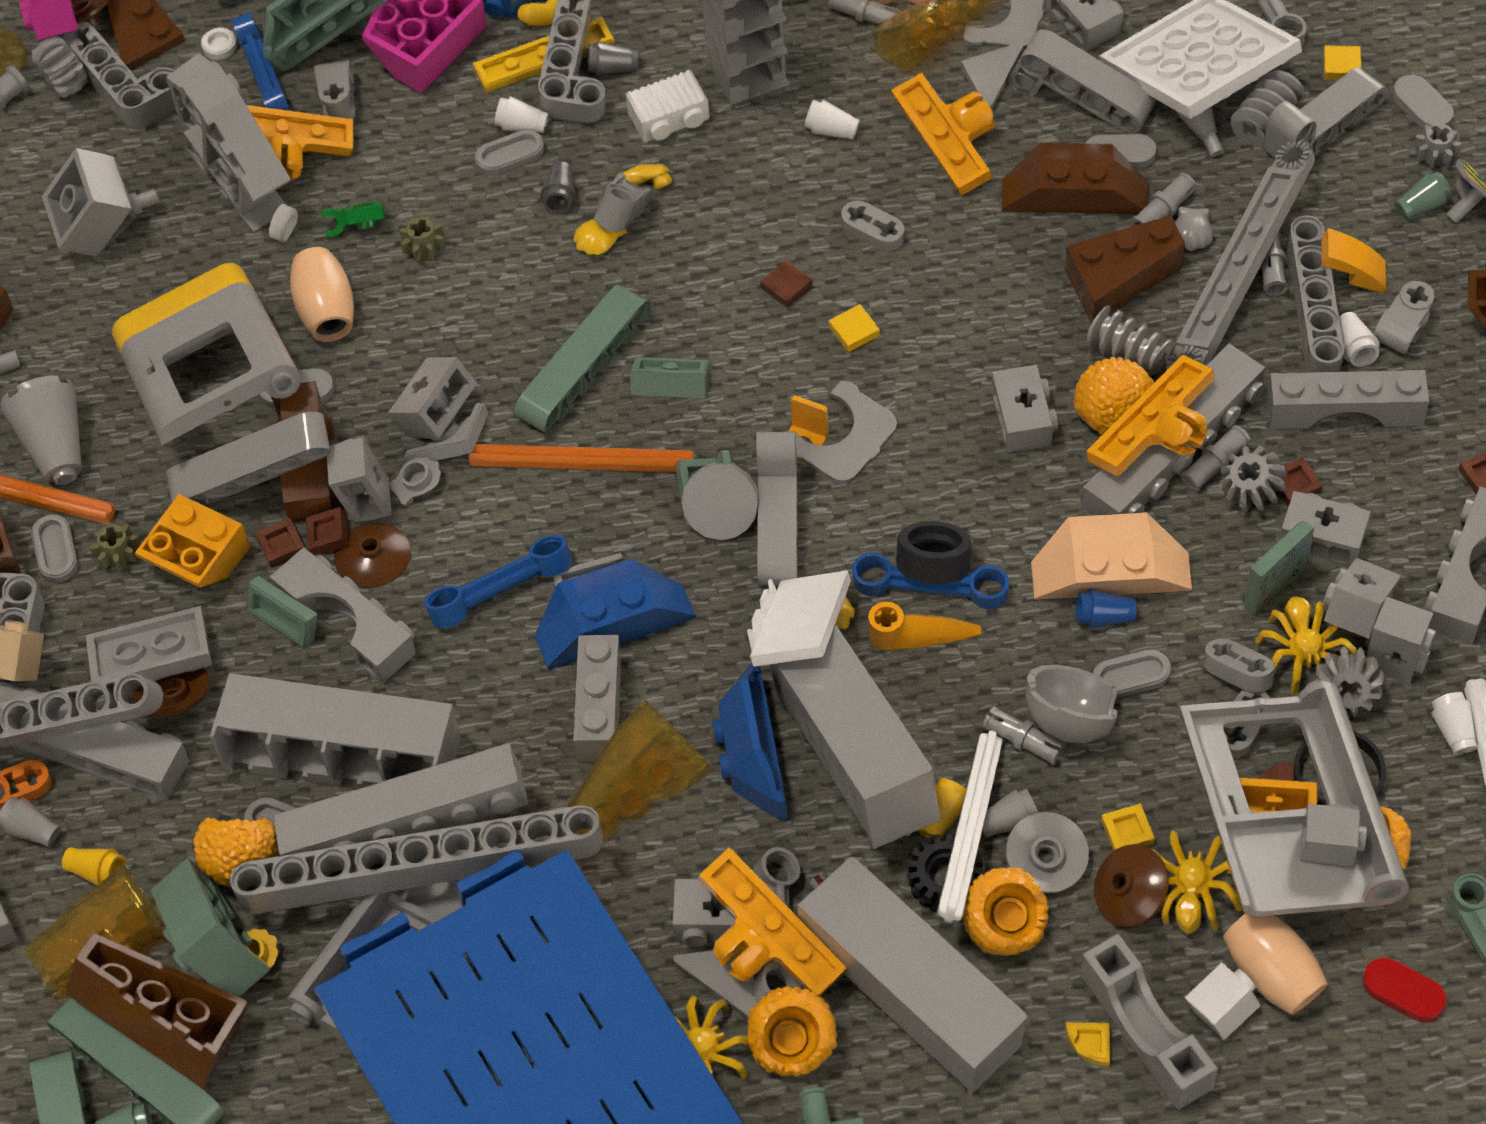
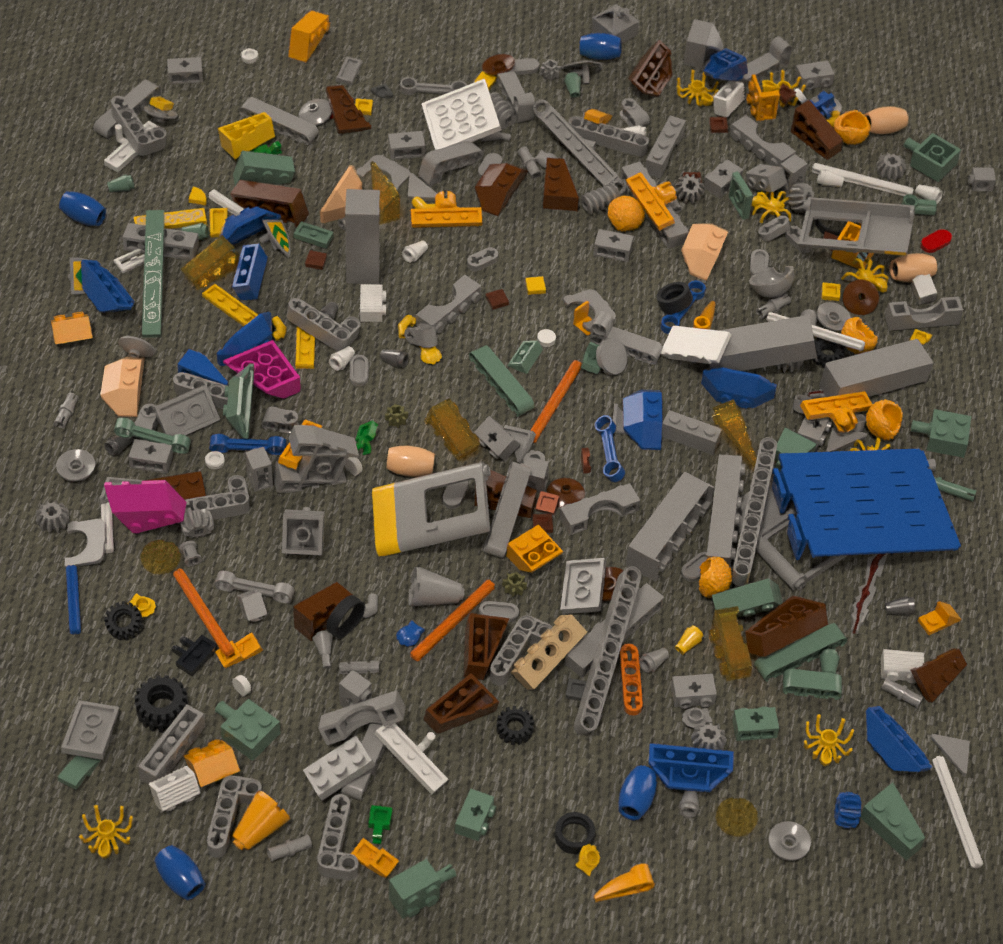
camera: 75 degrees left, 5 degrees down
(282, 612) = (586, 531): sand green tile -> none
(419, 323) = (452, 428): none -> clear yellow wedge
(452, 554) = (585, 454): none -> copper tile
(638, 889) = (792, 443): none -> sand green torso
(731, 391) = (546, 337): none -> white tile
(761, 228) = (464, 293): none -> light grey arch
(952, 85) = (418, 203): none -> yellow arm
(1103, 609) = (725, 259): blue cone -> none
(1332, 834) = (884, 218): light grey brick -> none
(1391, 61) = (498, 64): none -> reddish brown dish

